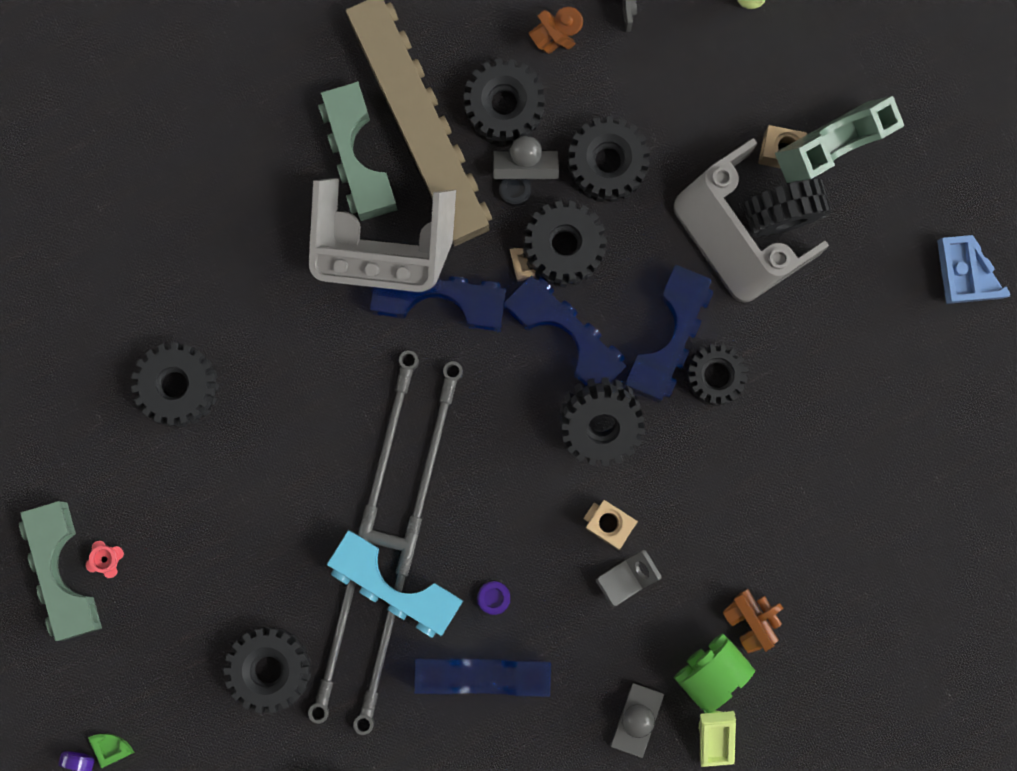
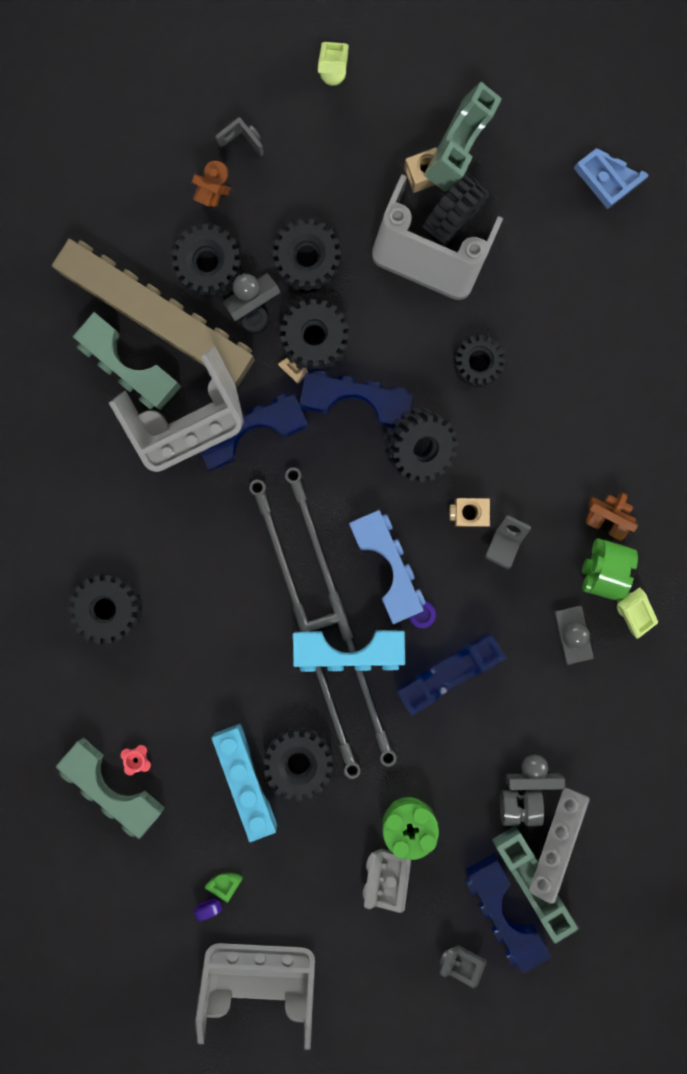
camera: 30 degrees left, 5 degrees up
(198, 653) = (243, 783): none -> medium azure arch
(494, 482) = (373, 534): none -> medium blue arch
(684, 297) = (422, 320): clear blue arch -> none

